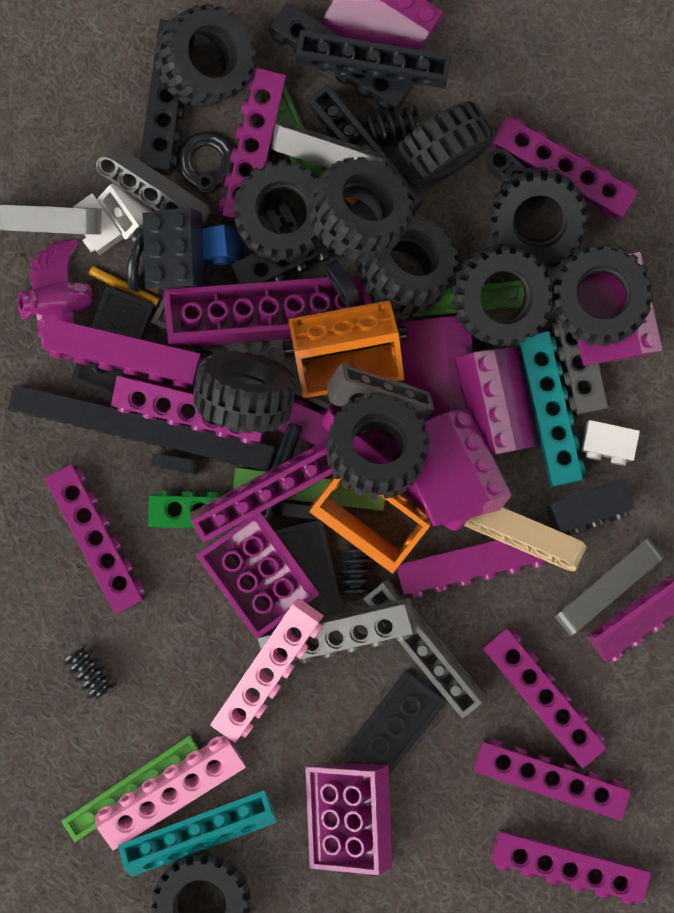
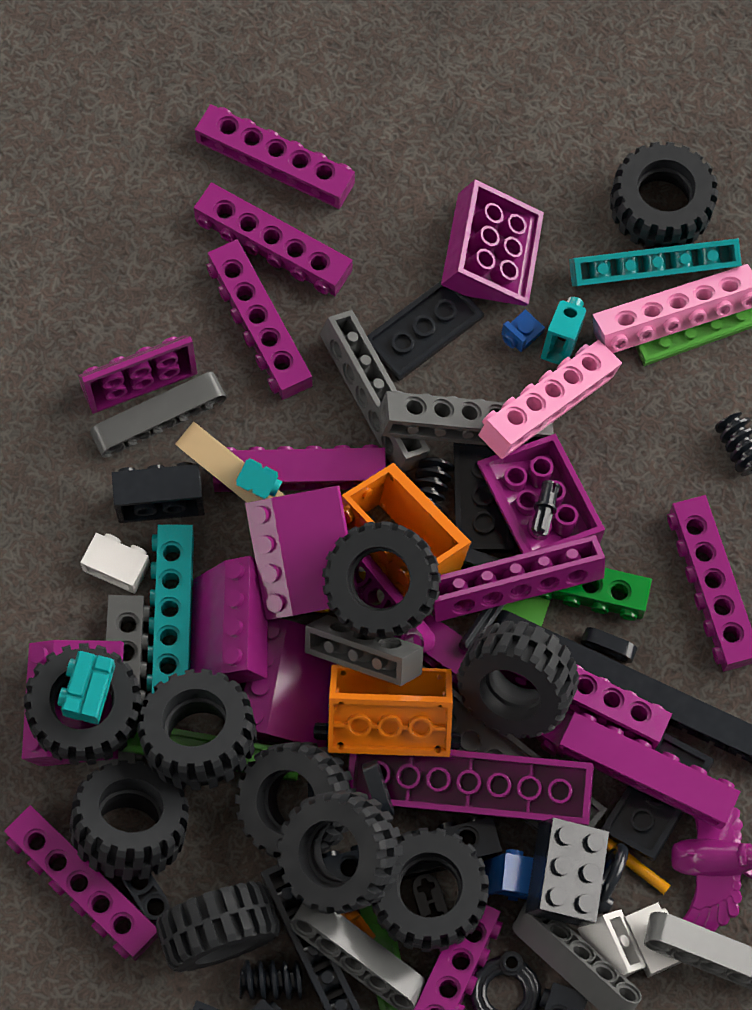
camera: 170 degrees left, 15 degrees down
(251, 558) = (545, 508): none -> black axle
(267, 740) = (567, 325): none -> teal torso
(306, 742) = (521, 331): none -> blue bracket
(505, 521) = (260, 480): none -> teal brick
(601, 296) = (87, 687): none -> teal brick

